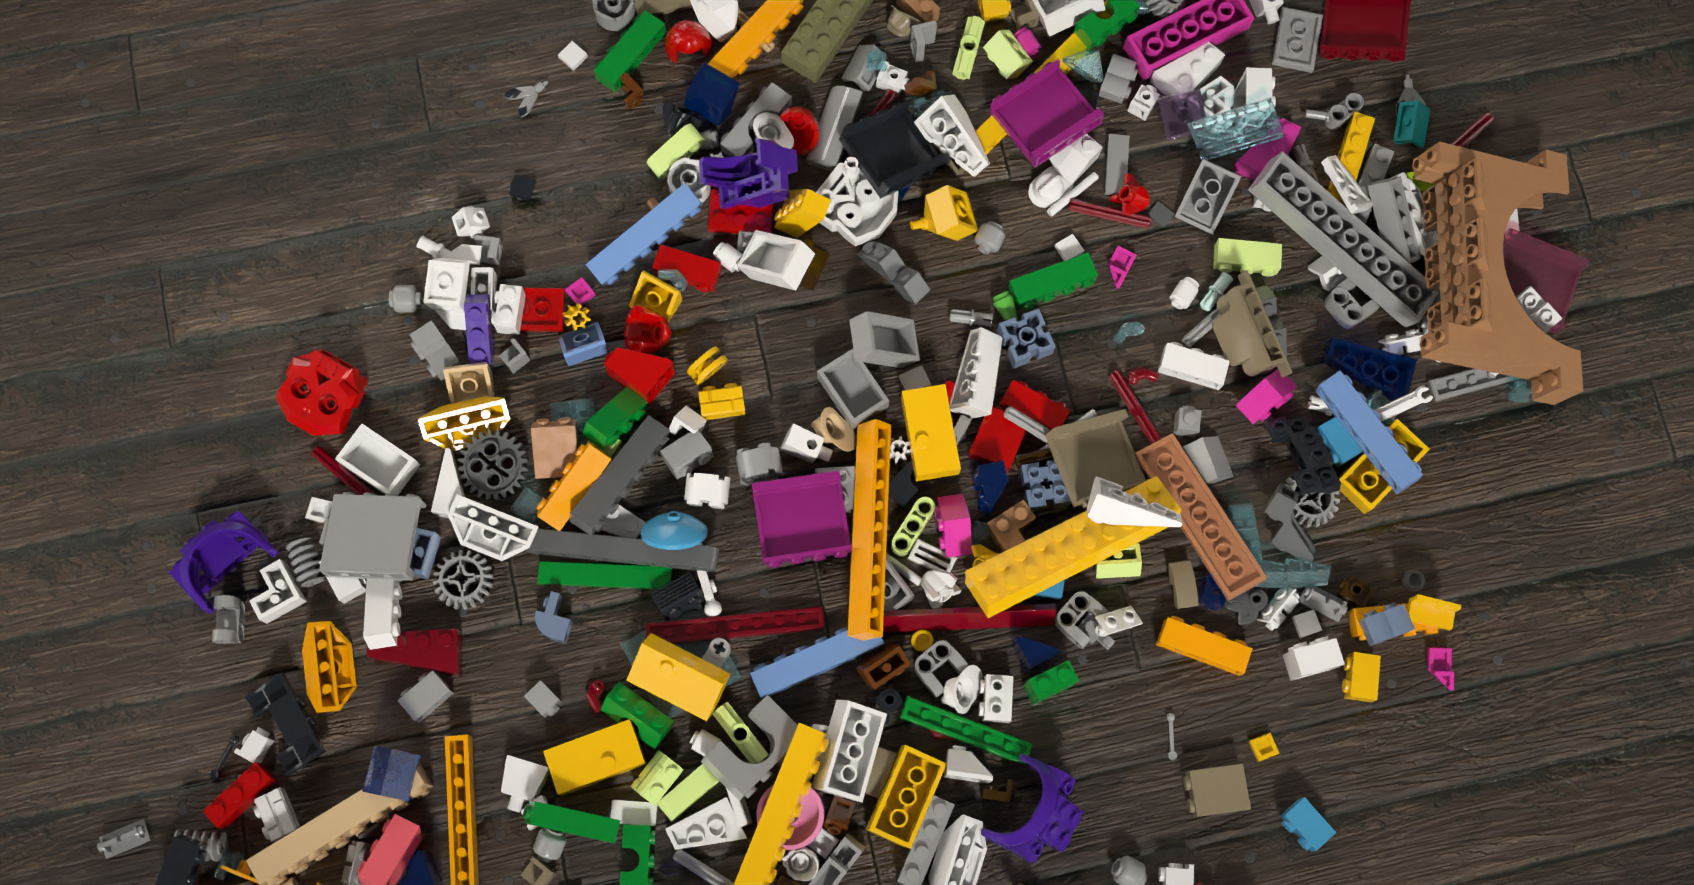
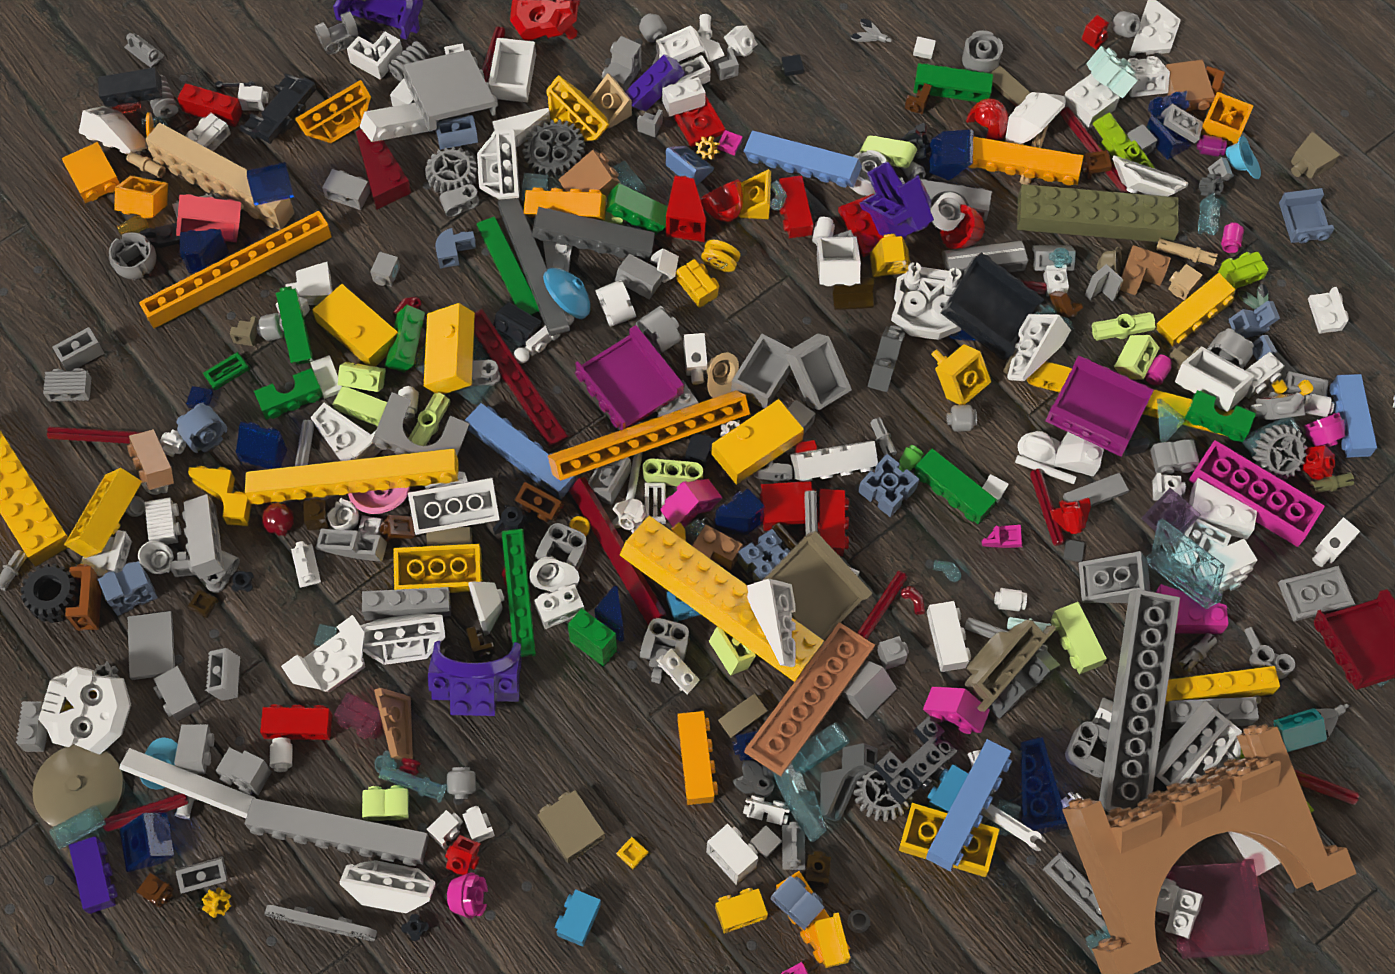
camera: 65 degrees right, 10 degrees down
(501, 592) = (459, 200): none -> light grey piece
(1172, 755) = (585, 776): light grey hinge -> none
(1348, 188) = (1191, 682): white wing -> none

